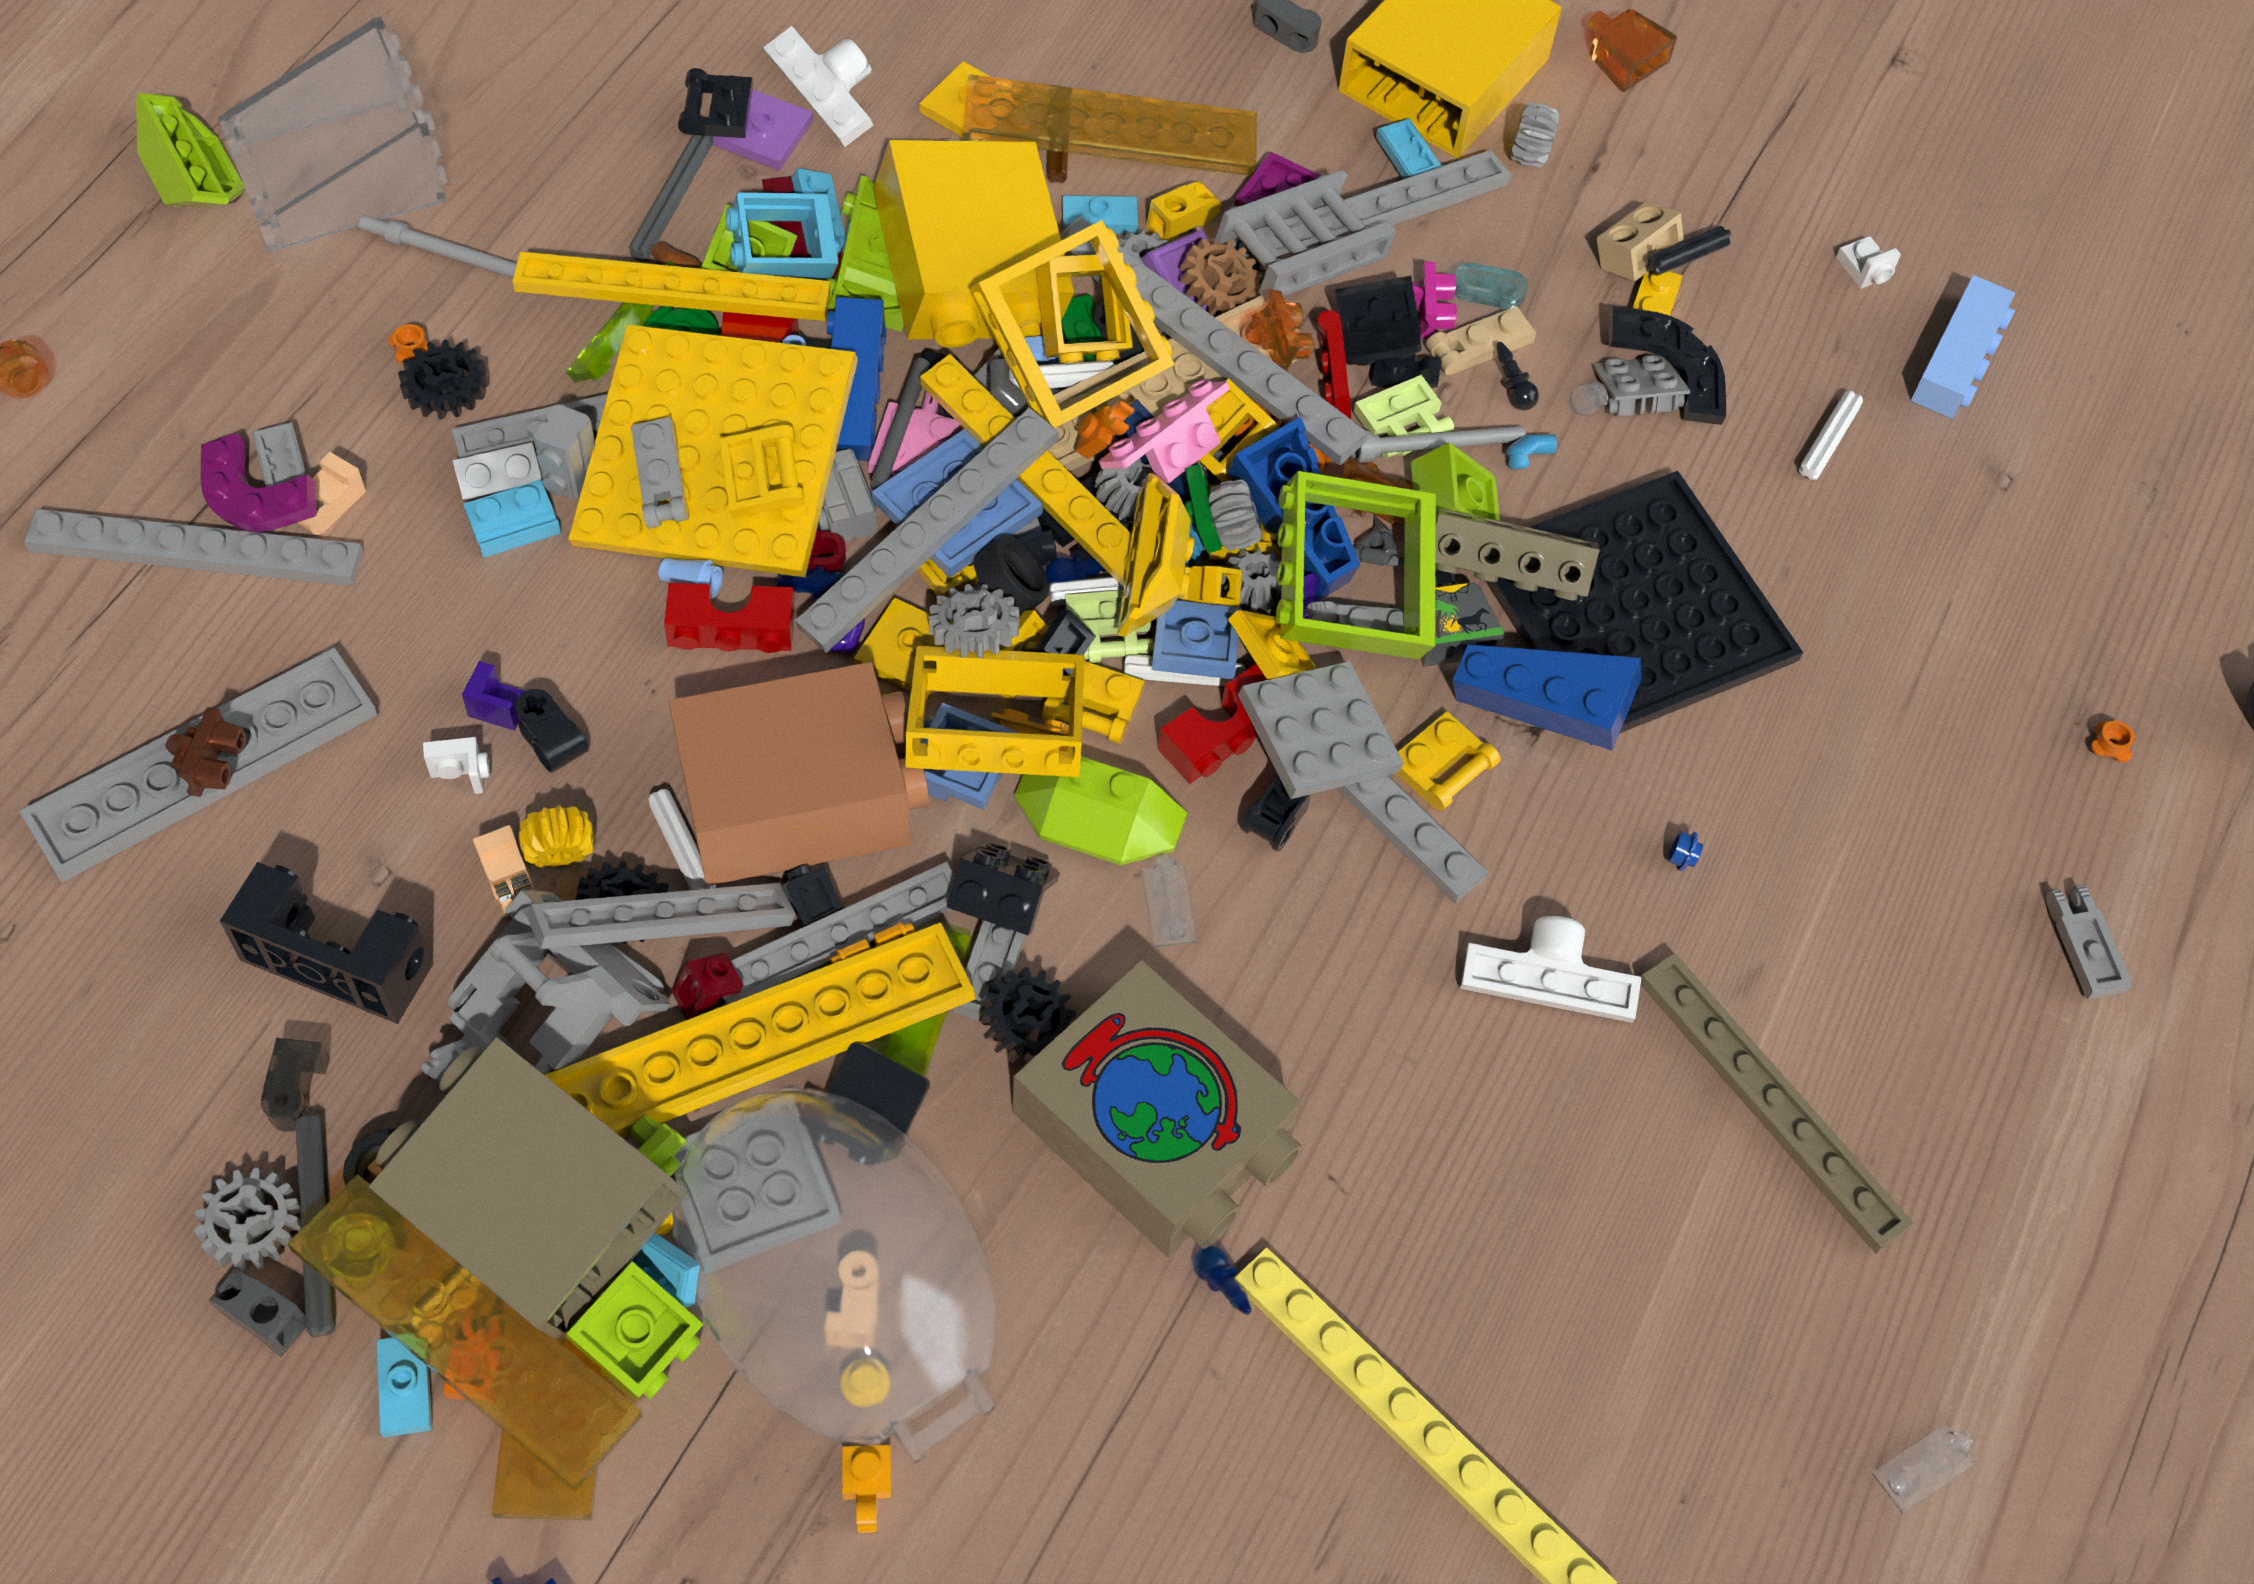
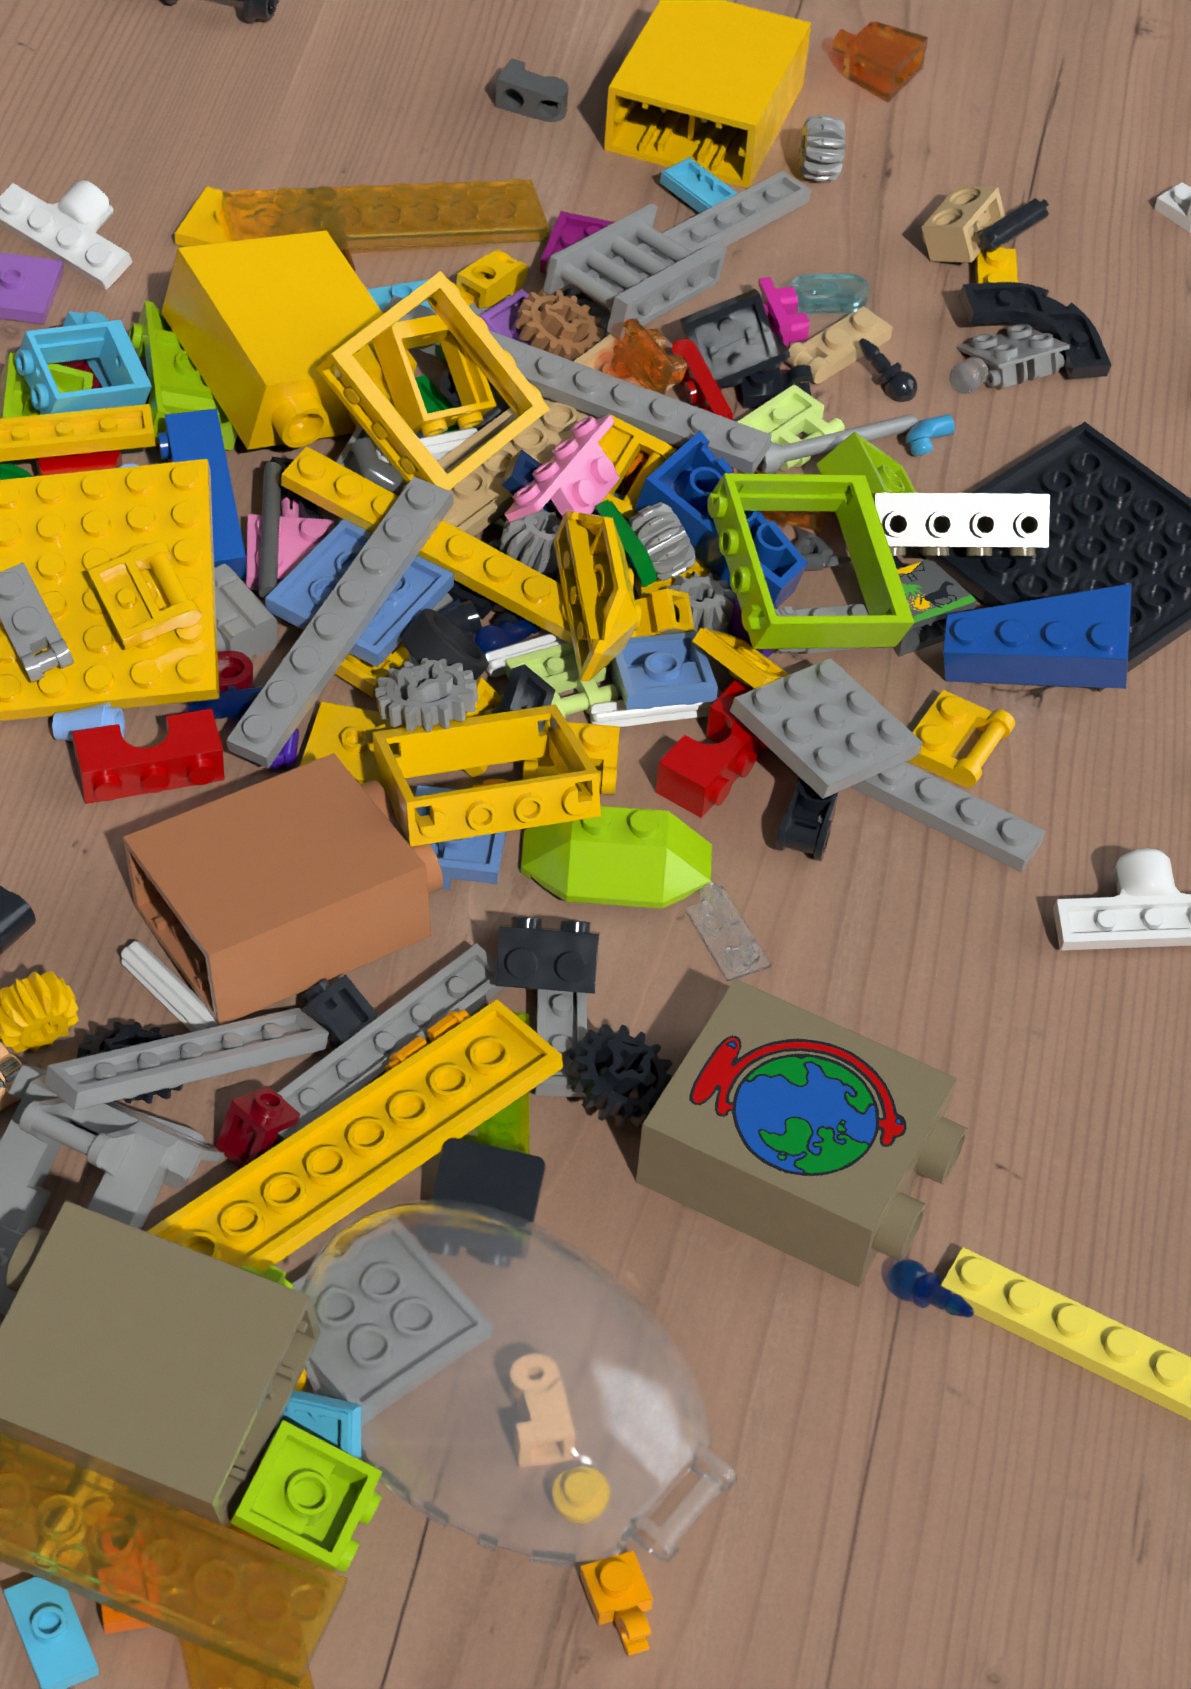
camera: 15 degrees left, 10 degrees down
(1098, 429) = (492, 486): orange plate -> none

